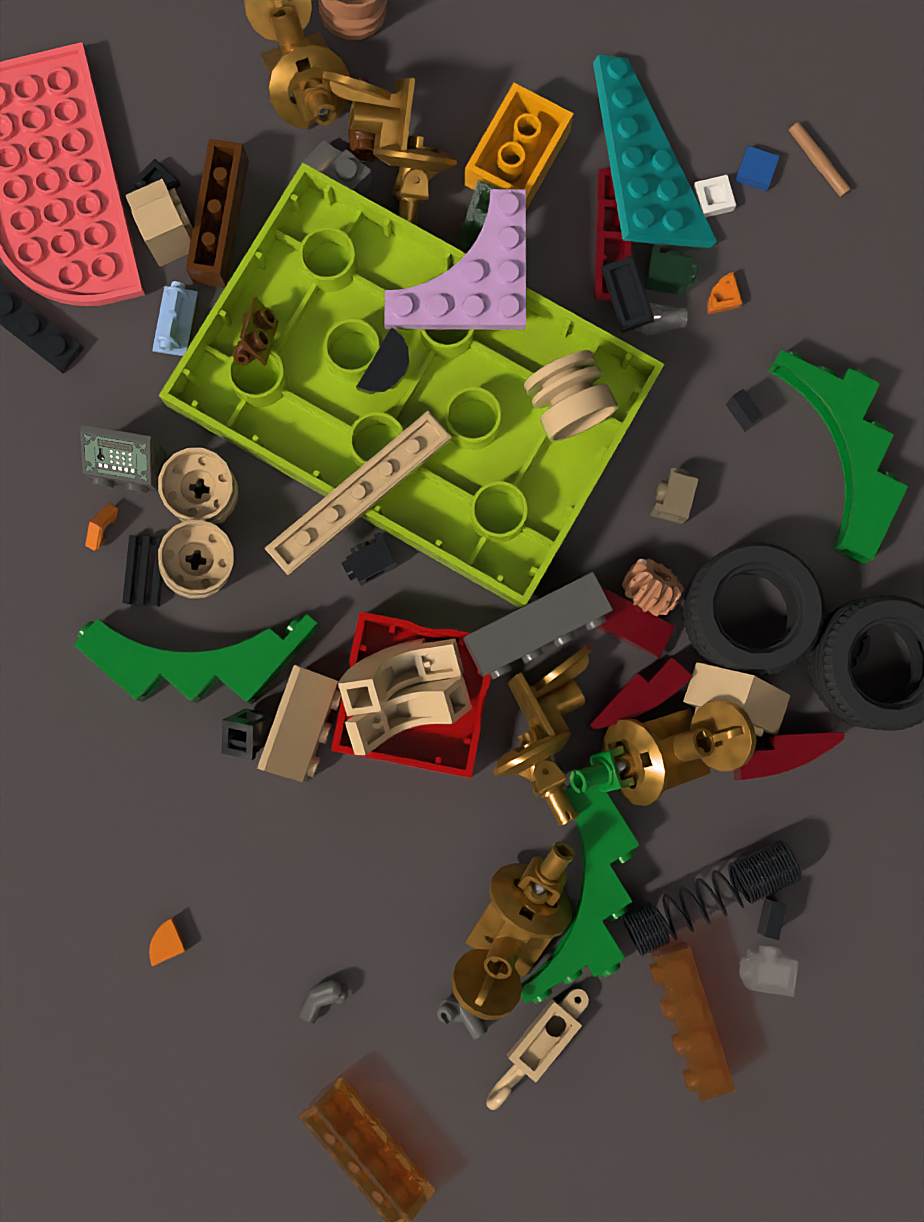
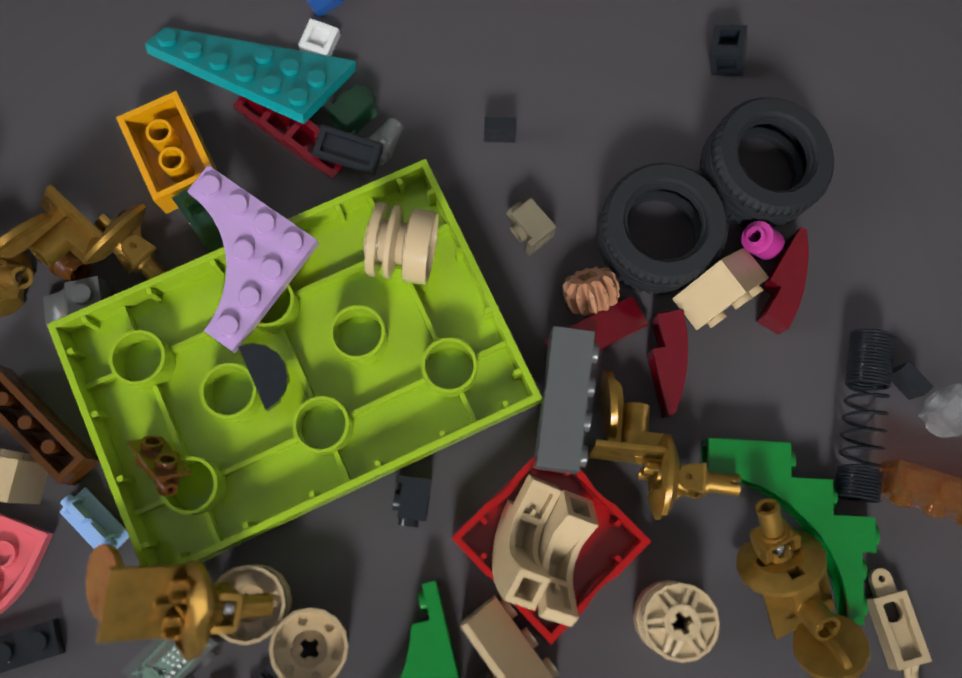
camera: 55 degrees left, 5 degrees down
(155, 419) = (165, 602): none -> pearl gold piece
(358, 493) = (355, 473): tan tile -> none
(442, 838) = (656, 612): none -> tan wheel
(668, 751) = (730, 368): pearl gold piece -> none
(724, 295) = (400, 84): orange tile -> none
(807, 707) = (762, 240): none -> dark pink brick
(842, 403) = (588, 66): green arch -> none

